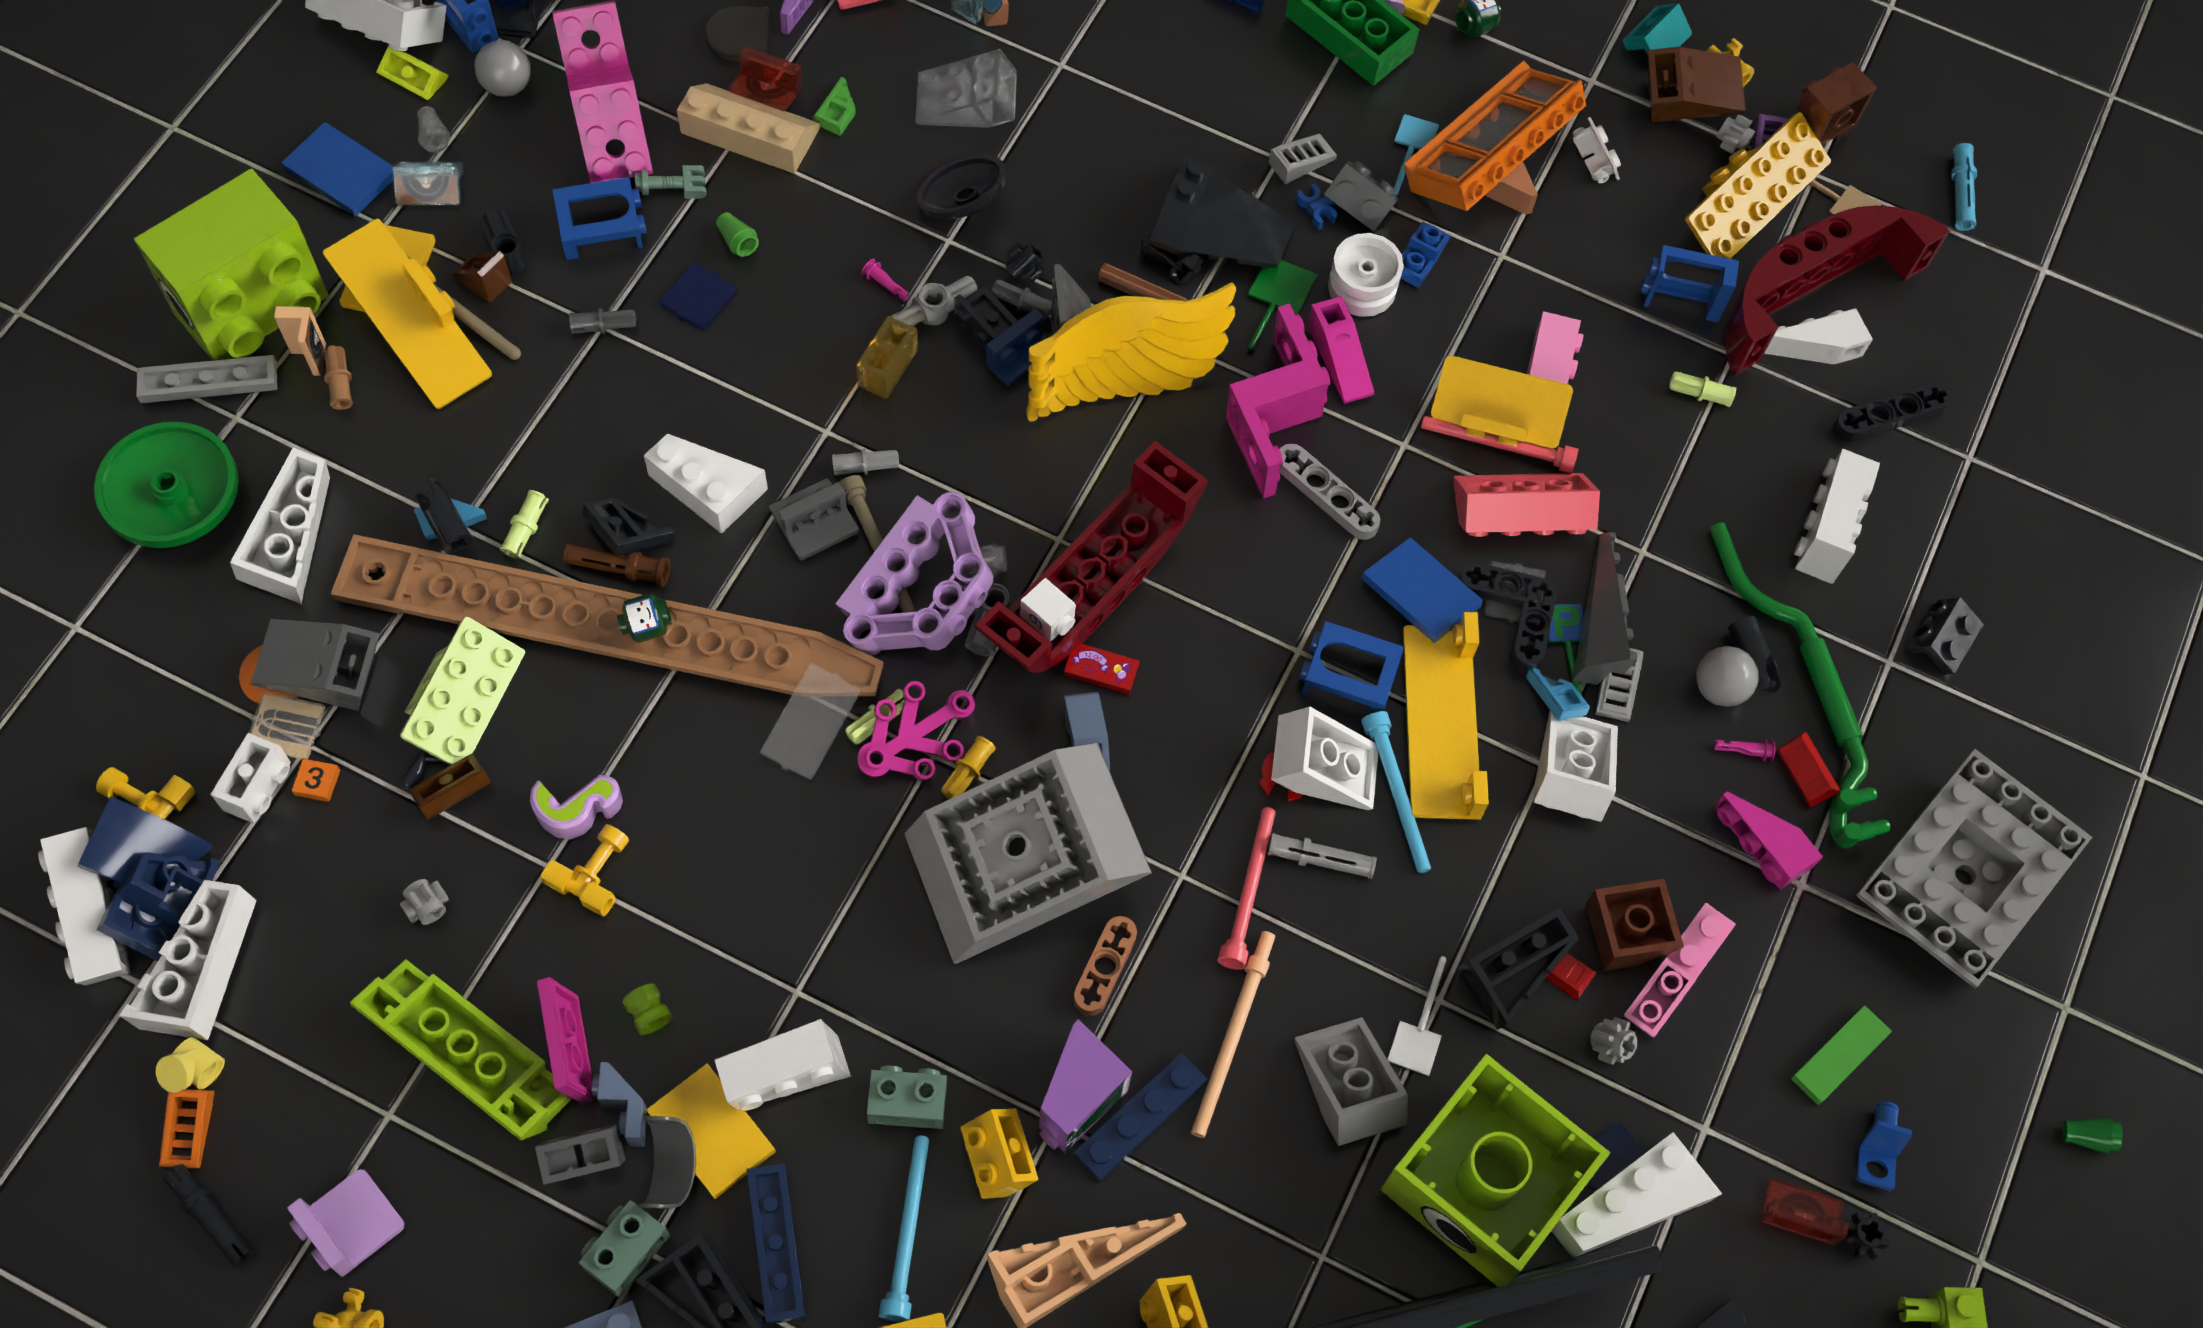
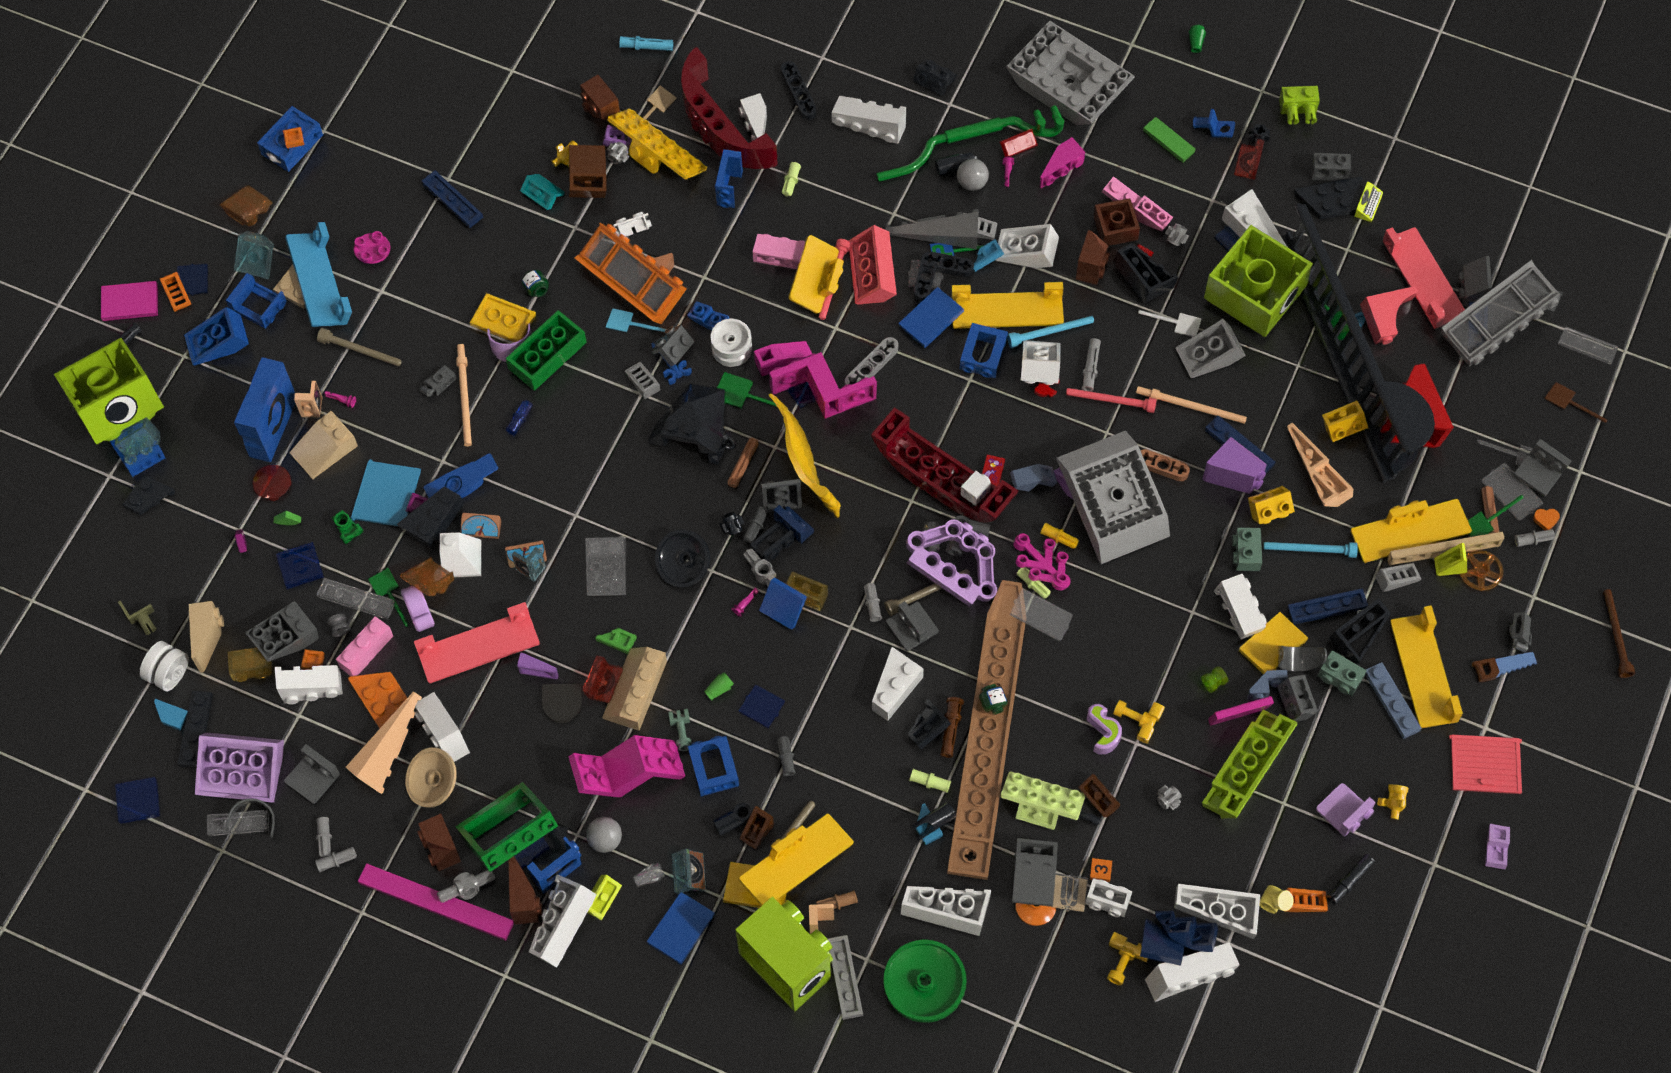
camera: 85 degrees left, 0 degrees up
(866, 320) = (783, 603): none -> blue tile
(1549, 869) = (1092, 259): none -> copper slope

